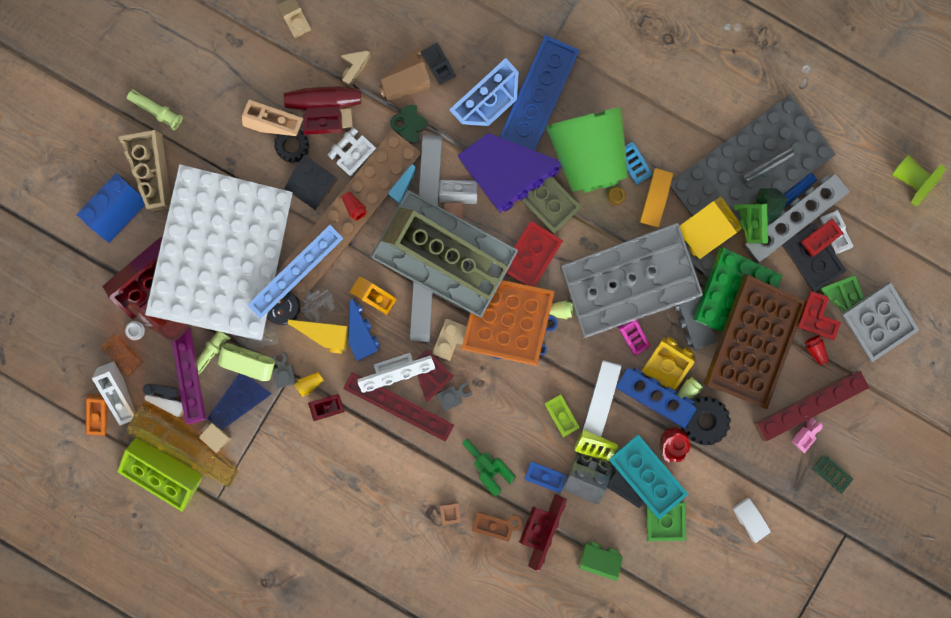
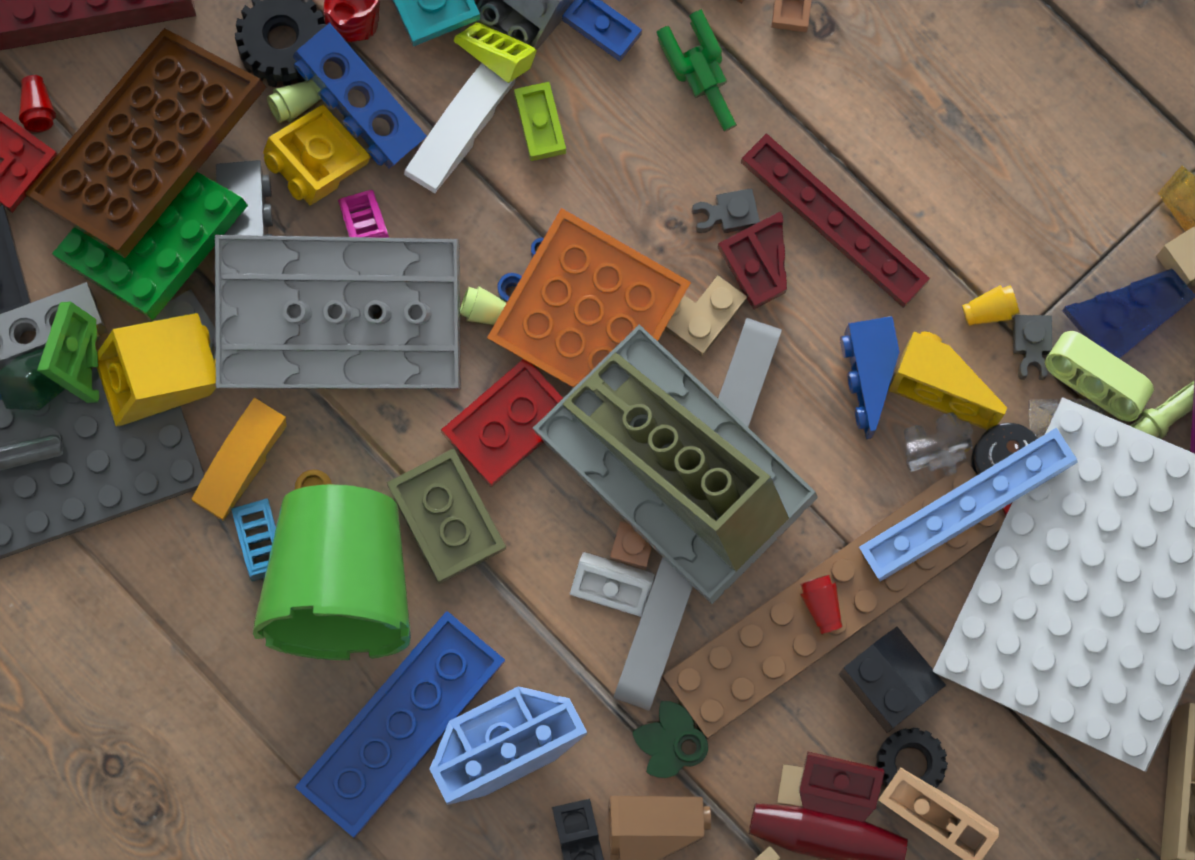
camera: 170 degrees left, 10 degrees down
(326, 407) = (970, 251): dark red slope -> none
(355, 156) = (792, 706): white plate -> none
(373, 295) = (830, 432): light orange slope -> none
(395, 370) = (824, 283): white bracket -> none
(402, 185) = (725, 614): medium azure slope -> none
(506, 169) = (510, 589): dark purple slope -> none

